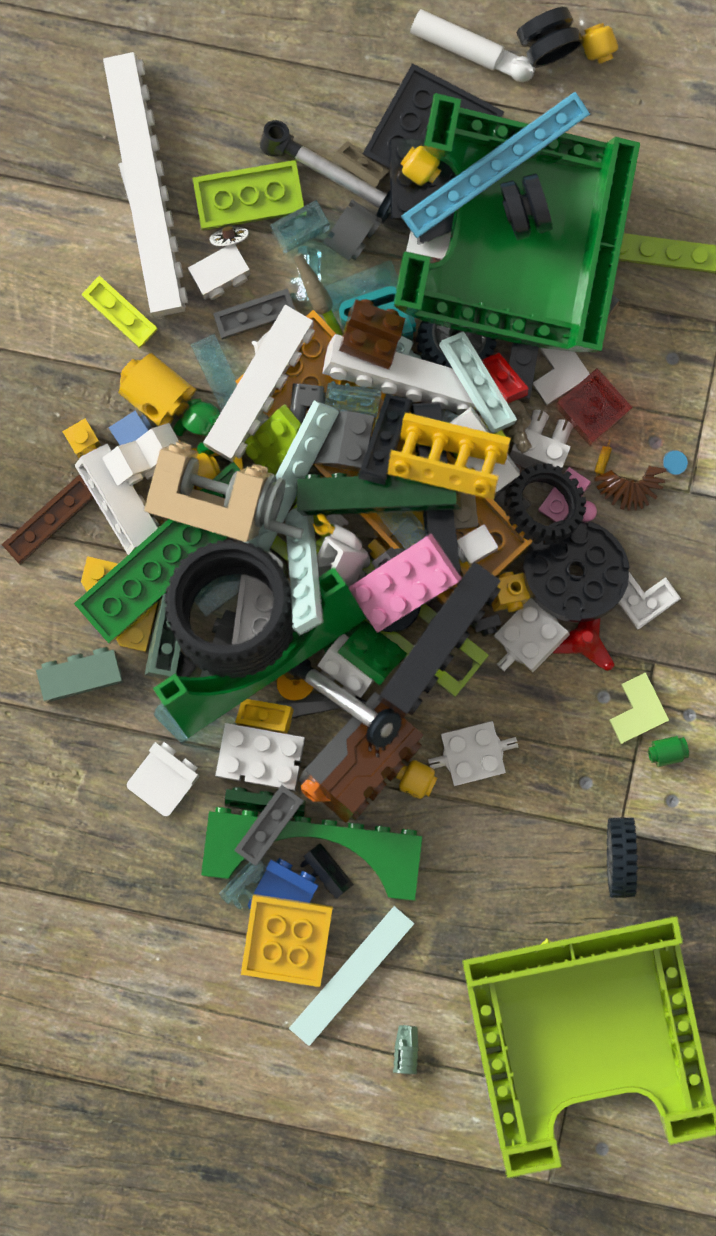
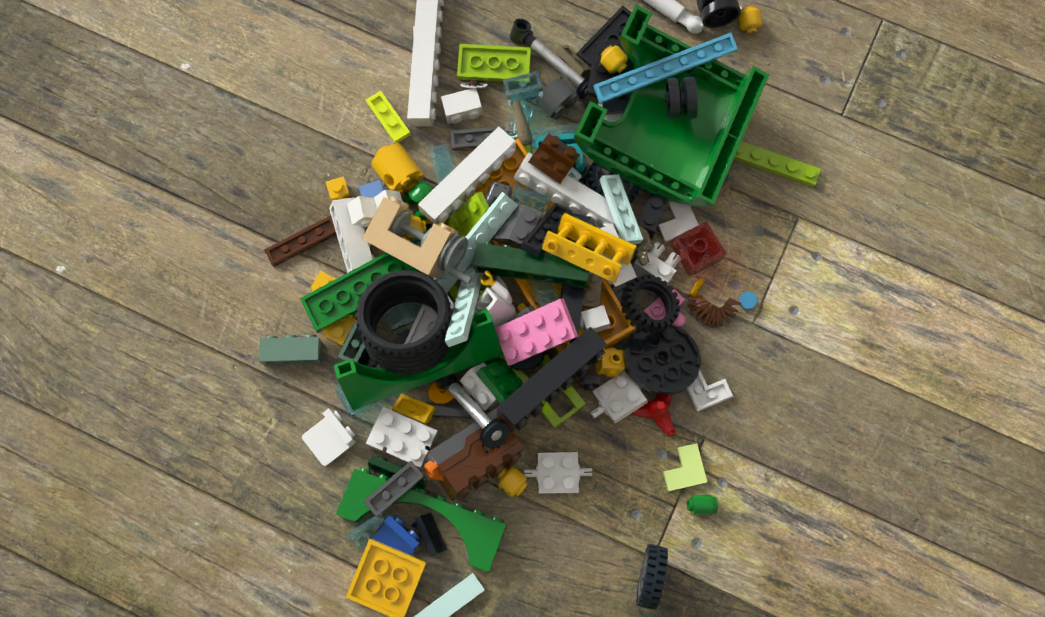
camera: 10 degrees right, 10 degrees down
(505, 378) = (641, 212): red plate -> none

